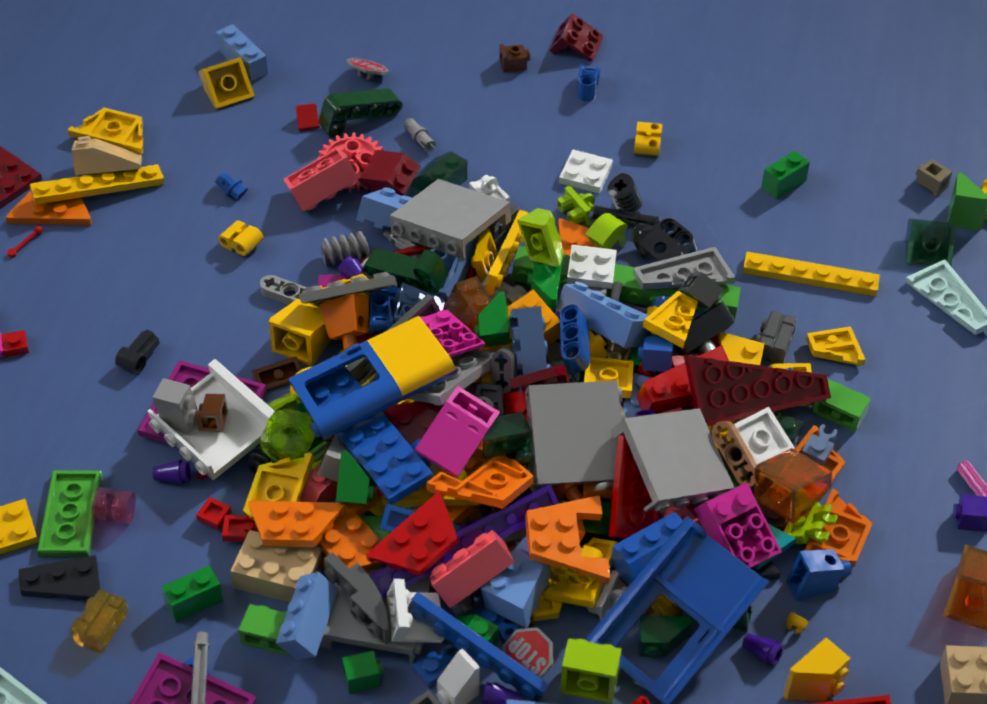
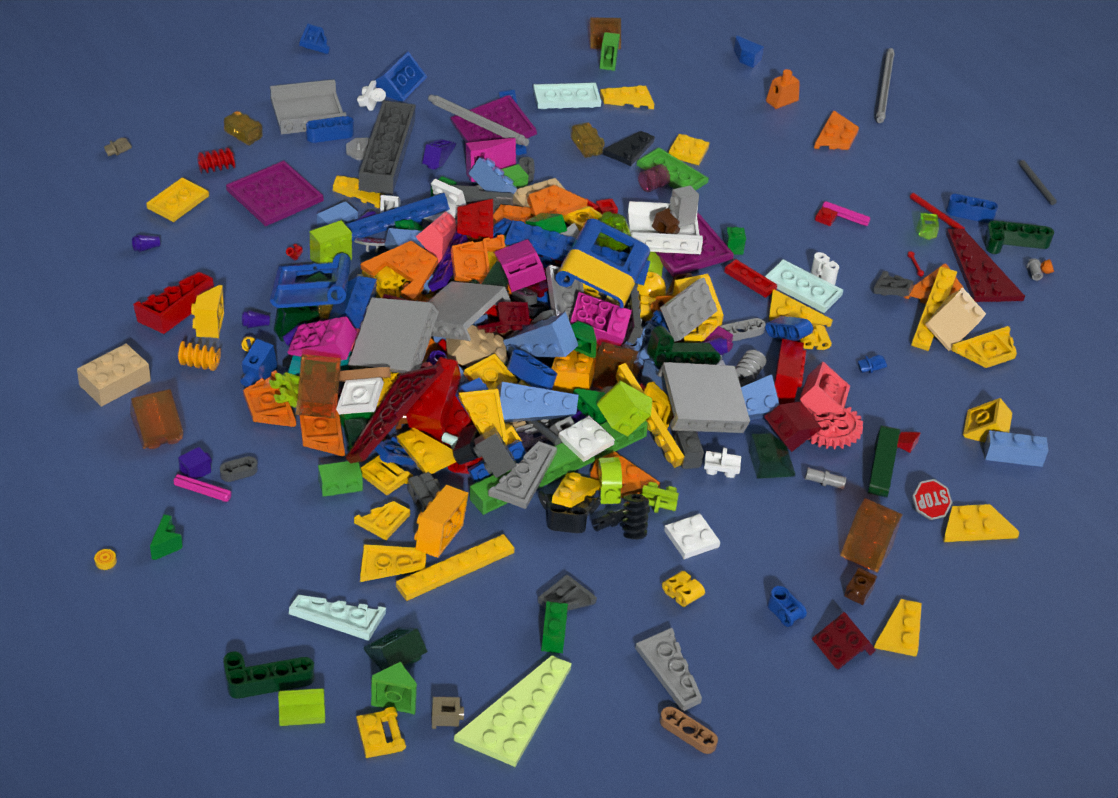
camera: 130 degrees right, 5 degrees down
(91, 229) = (894, 285): none -> dark grey wing
(124, 284) = (824, 269): none -> white piece
(136, 355) = (760, 244): black piece -> none
(146, 378) = (734, 239): none -> green slope
(166, 288) = (804, 286): none -> light aqua plate
(192, 593) = (564, 168): green brick -> none
(201, 330) = (750, 278): none -> red plate
(217, 273) = (785, 306): none -> yellow wing
(222, 639) = (528, 169): none -> dark grey beam
(259, 246) = (789, 328): none -> blue beam
(265, 660) = (500, 151): none -> dark pink slope
(317, 219) = (789, 370): none -> red wedge
(357, 41) = (977, 523): none -> yellow wing
(459, 67) = (871, 535): none -> clear orange slope
(524, 21) = (902, 629): none -> yellow wing
(648, 248) = (574, 489): none -> yellow wing
(725, 104) = (667, 663): none -> light grey wing
(747, 193) = (568, 592): none -> dark grey wing
(757, 74) = (685, 721): none -> medium nougat beam
(800, 286) = (441, 521): none -> light orange brick
(820, 447) = (326, 434): sand blue plate -> none
(868, 312) = (390, 561): none -> yellow wing
(870, 637) = (198, 357): none -> light orange piece
(874, 151) = (513, 719): none -> yellowish green wing
(929, 486) = (238, 469): none -> dark grey beam

